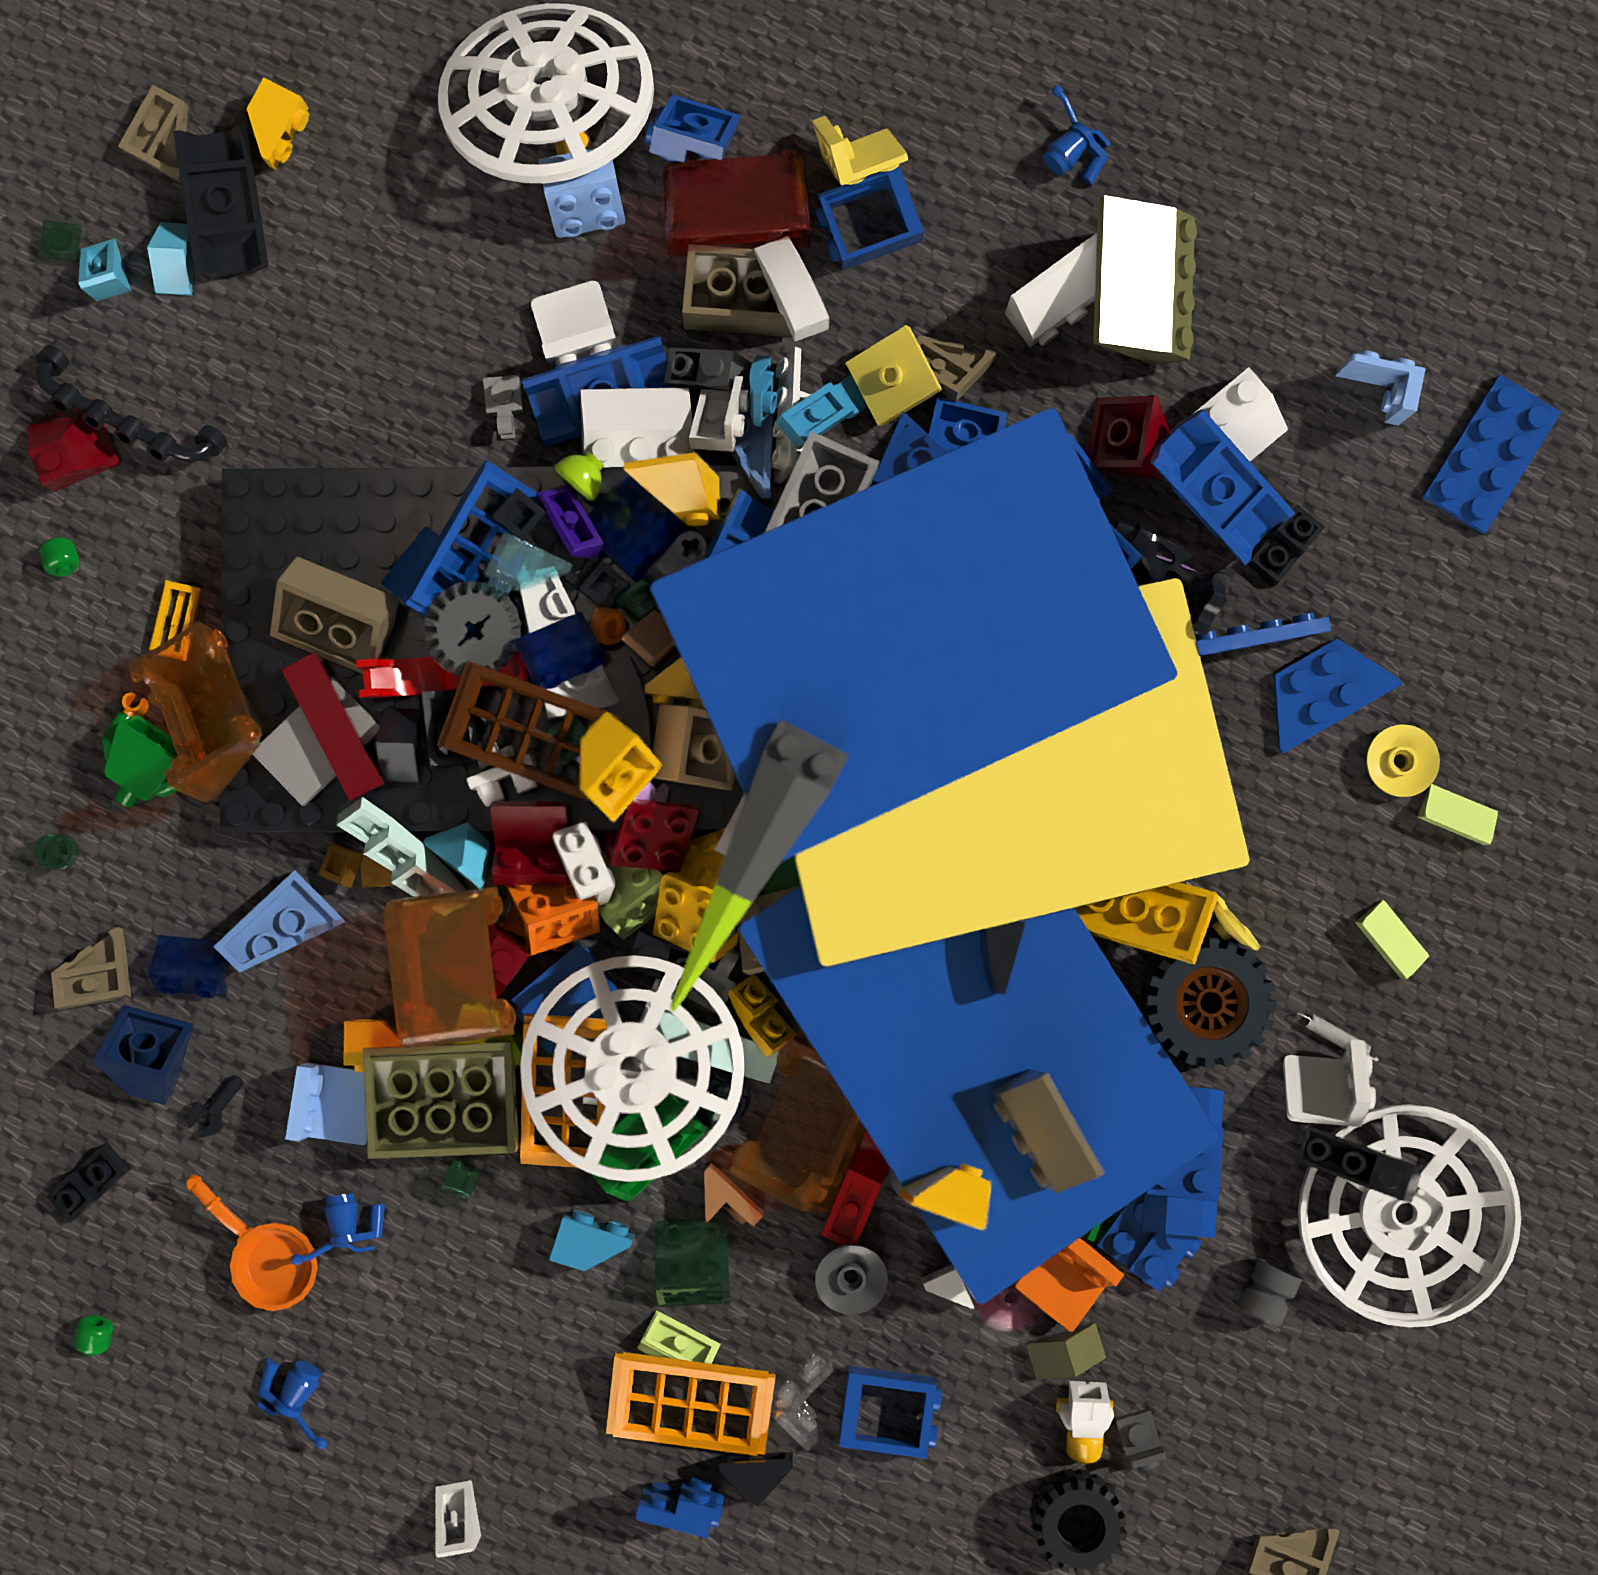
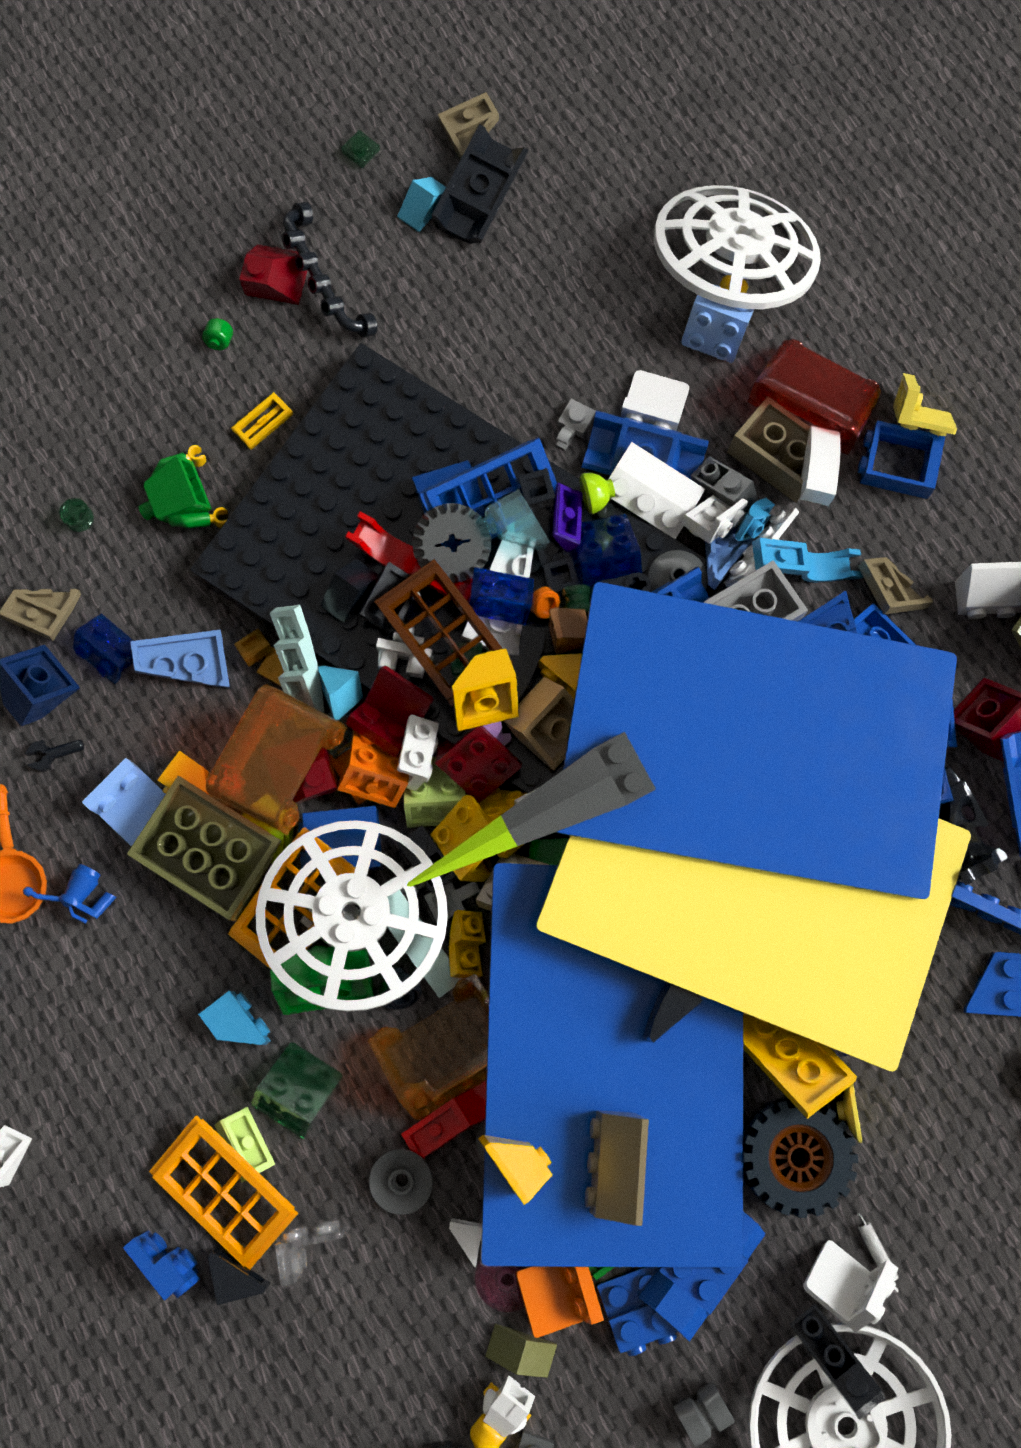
camera: 30 degrees right, 10 degrees down
(102, 271) = (373, 182): medium azure slope -> none
(201, 708) = (237, 481): clear orange windscreen -> none
(275, 119) = (549, 158): yellow slope -> none
(296, 755) = (296, 551): light grey tile -> none
(331, 614) = (365, 474): dark tan slope -> none
(333, 726) = (313, 547): dark red tile -> none
(461, 1180) = (178, 916): clear green wheel -> none
(682, 485) = (660, 538): yellow slope -> none
(690, 127) = (816, 323): blue plate -> none
(721, 1190) = (353, 1049): medium nougat slope -> none
(893, 376) = (852, 568): light yellow plate -> none
(932, 1402) = (396, 1317): blue window -> none
(1392, 939) = (964, 1207): yellowish green slope -> none

